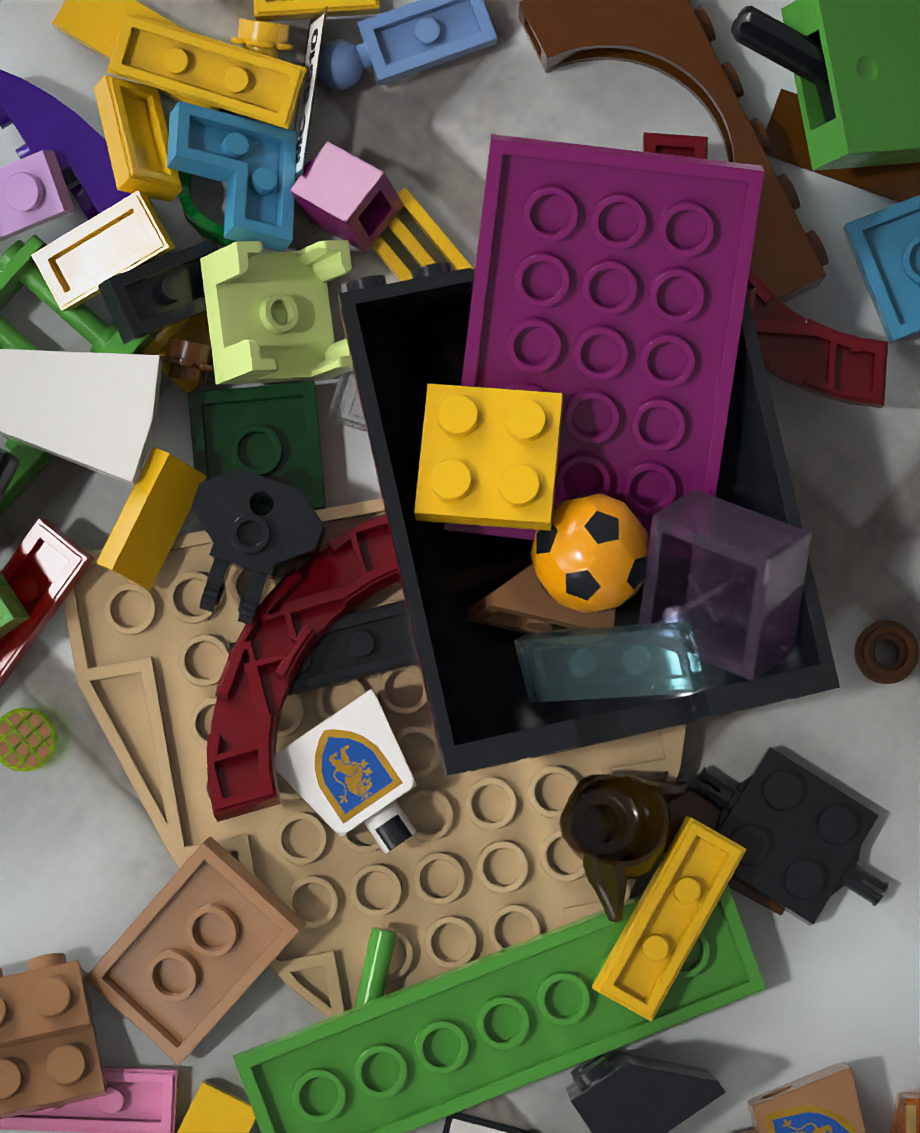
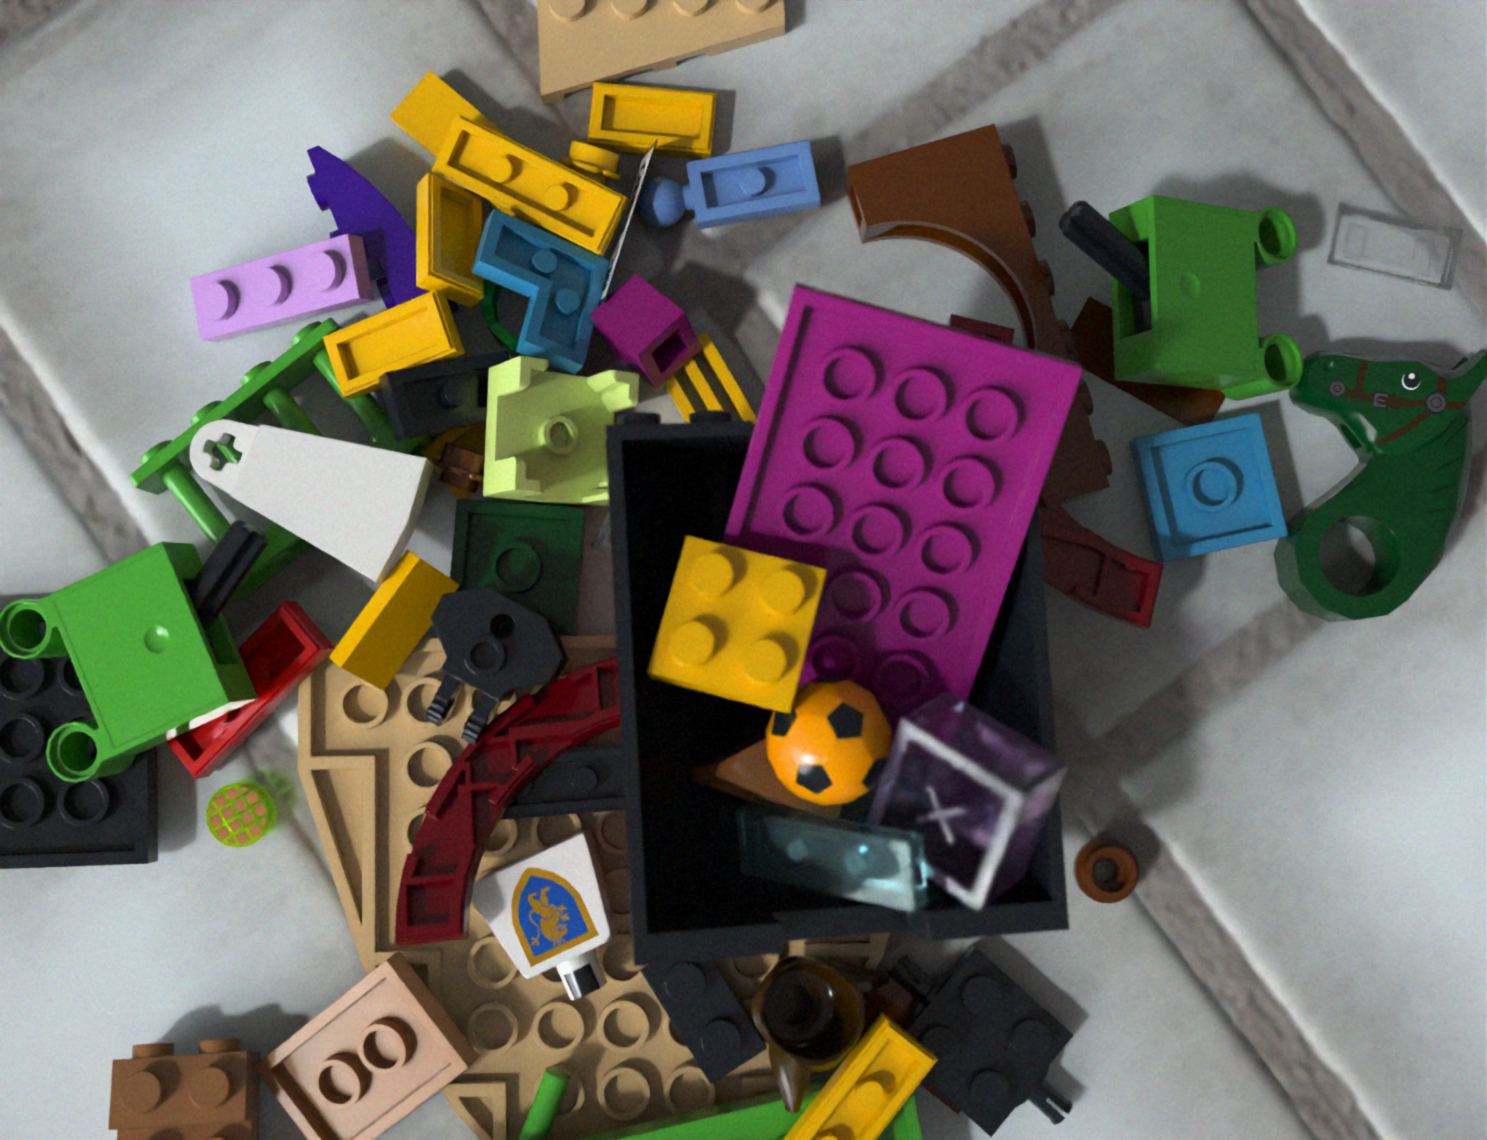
camera: 10 degrees right, 0 degrees up
(514, 843) = (706, 1014): none -> black plate

